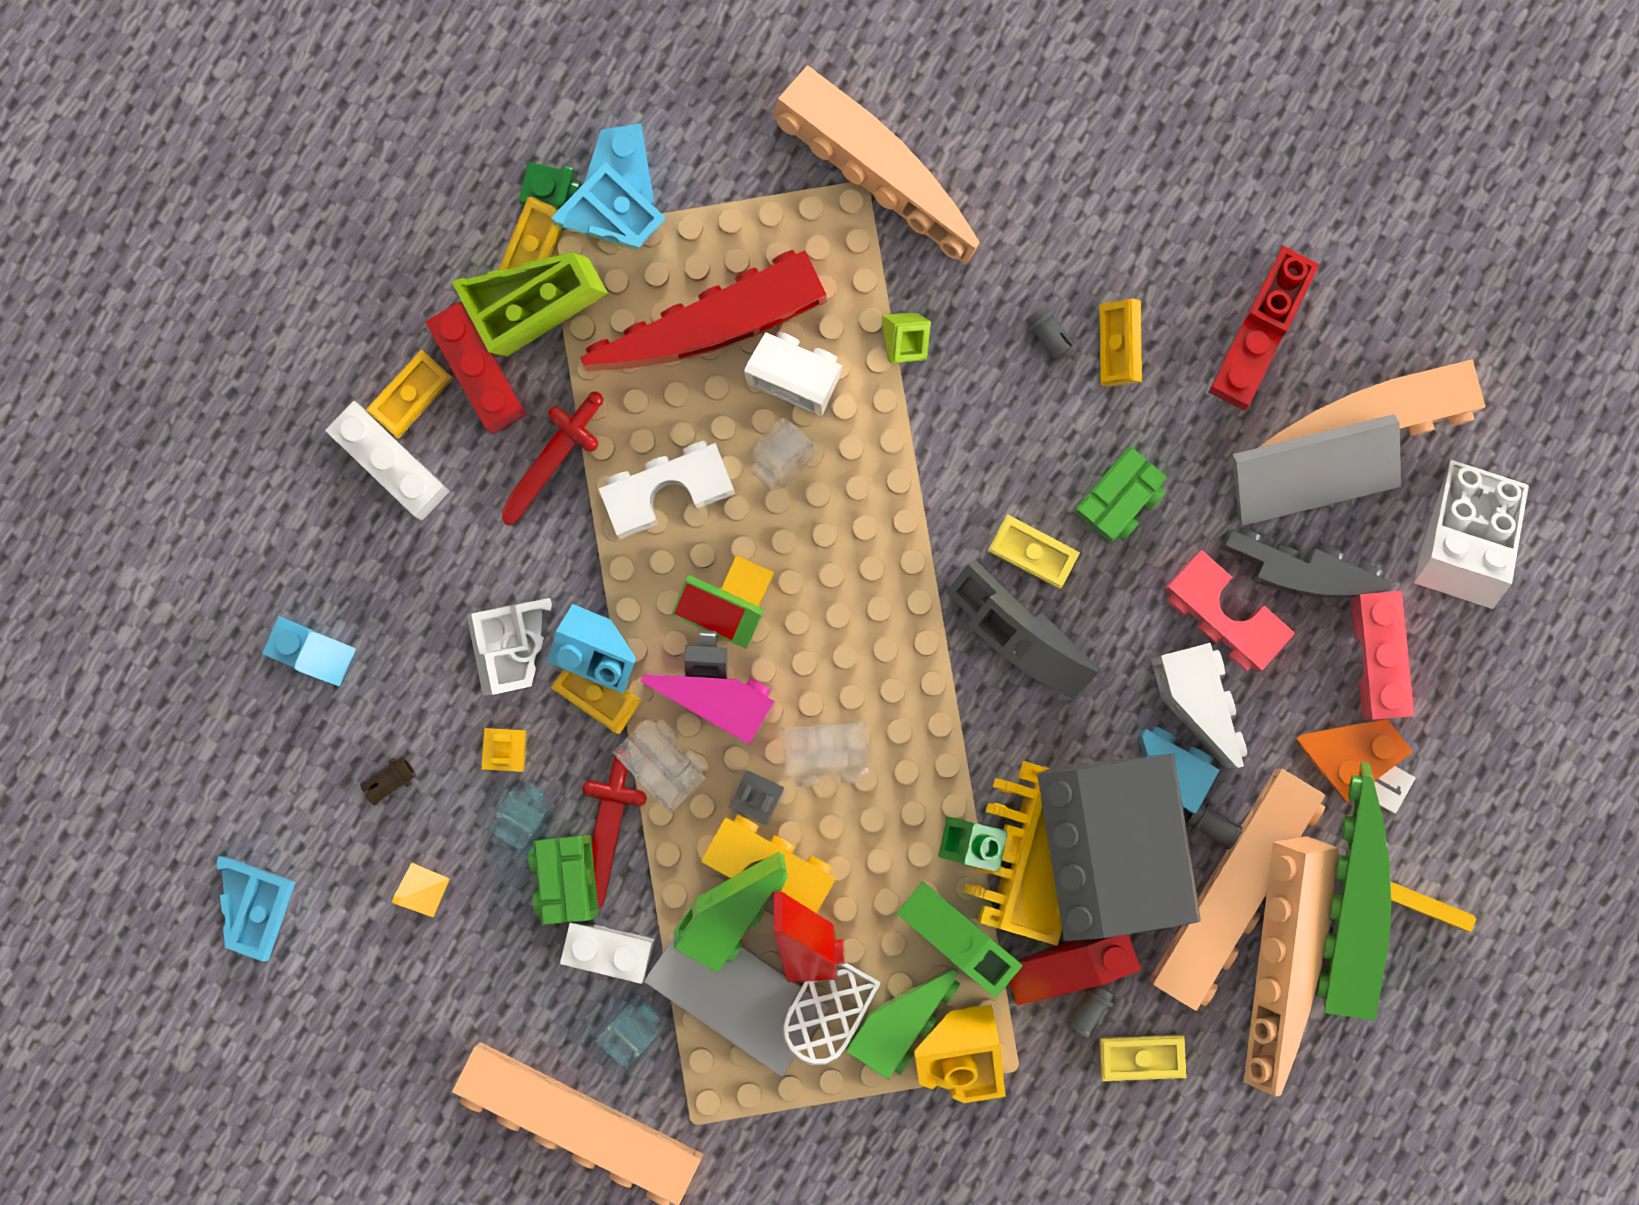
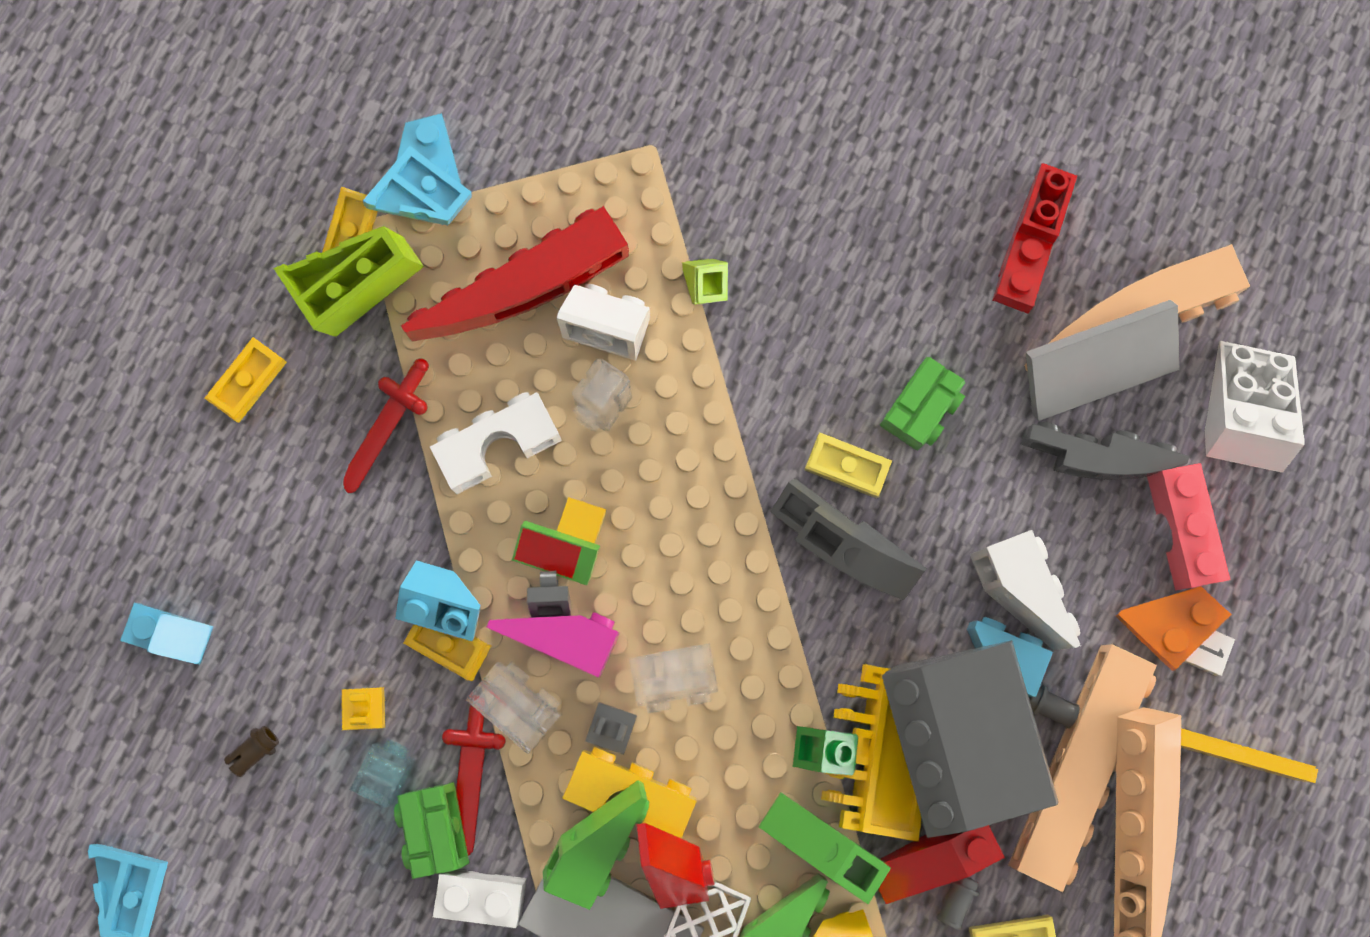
camera: 15 degrees left, 5 degrees down
(387, 460) = (227, 443): white arch -> none
(421, 890) = (292, 856): yellow slope -> none
(476, 368) = (305, 349): red brick -> none
(507, 658) = (359, 619): white slope -> none
(549, 184) = (360, 174): green bracket -> none
(874, 158) = (659, 122): light nougat slope -> none
(1049, 331) = (837, 262): dark grey pin -> none
(1120, 342) = (905, 264): yellow plate -> none
(1198, 591) = (1007, 486): coral arch -> none
(1360, 911) = (1210, 771): bright green slope -> none

